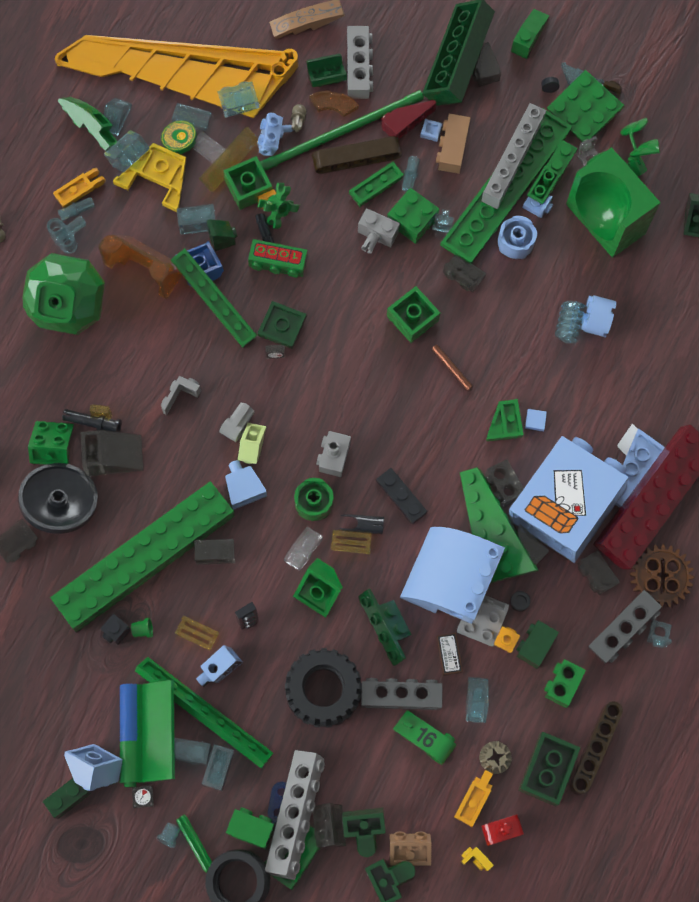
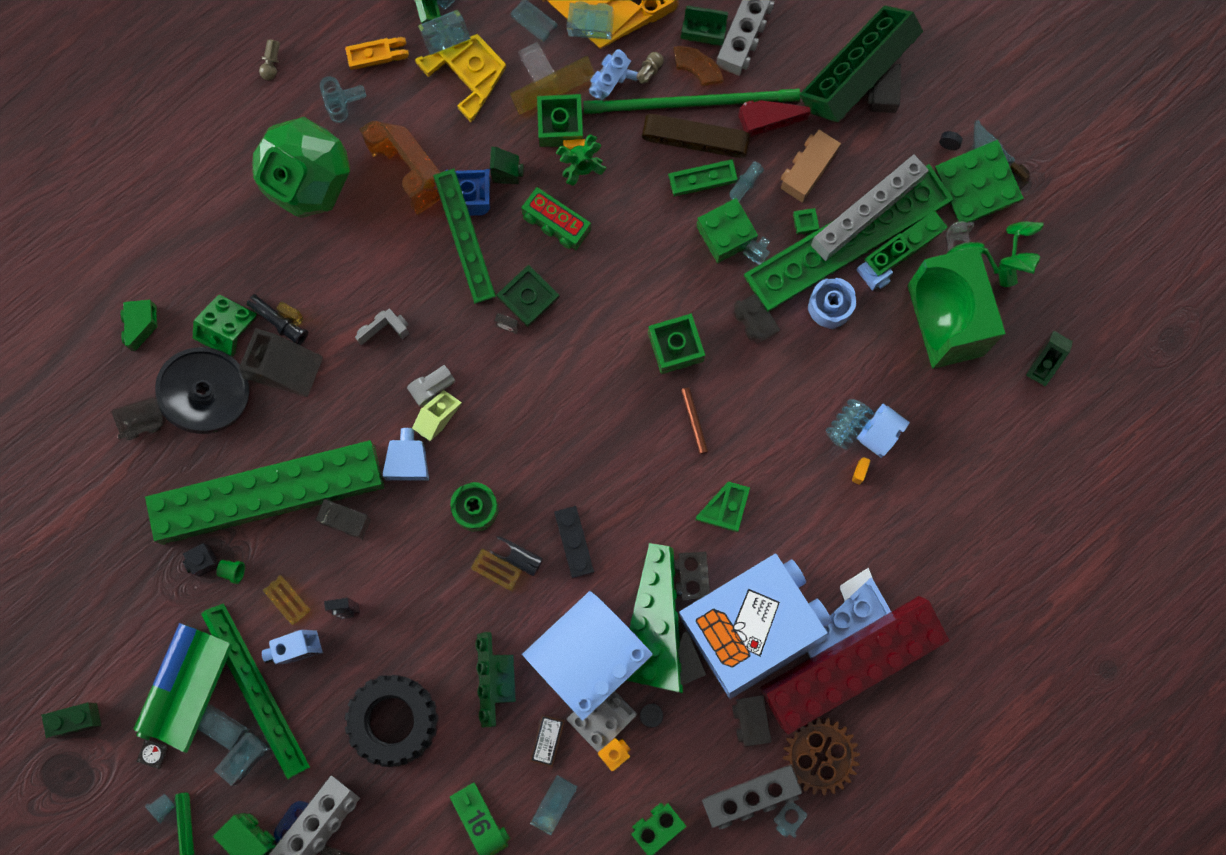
camera: 25 degrees right, 5 degrees up
(76, 208) = (362, 75): clear light blue axle -> none
(93, 766) = (110, 700): light blue slope -> none
(179, 136) = (509, 38): tile -> none
(194, 218) = (481, 136): clear light blue brick -> none
(264, 228) = (556, 180): black axle -> none
(303, 548) = (440, 555): clear slope -> none
(319, 587) = (437, 606): green slope -> none
(334, 453) = (520, 464): light grey brick -> none
(376, 229) = (680, 230): light grey brick -> none
(391, 701) = (438, 754): dark grey brick -> none
(431, 130) = (792, 140): light blue tile -> none
(469, 185) = (805, 221): none -> green plate
(529, 33) = (954, 71): green slope -> none
(535, 420) = (760, 519): light blue tile -> none
(537, 644) = (647, 772): dark green brick -> none
(594, 352) = (860, 470): none -> light orange tile

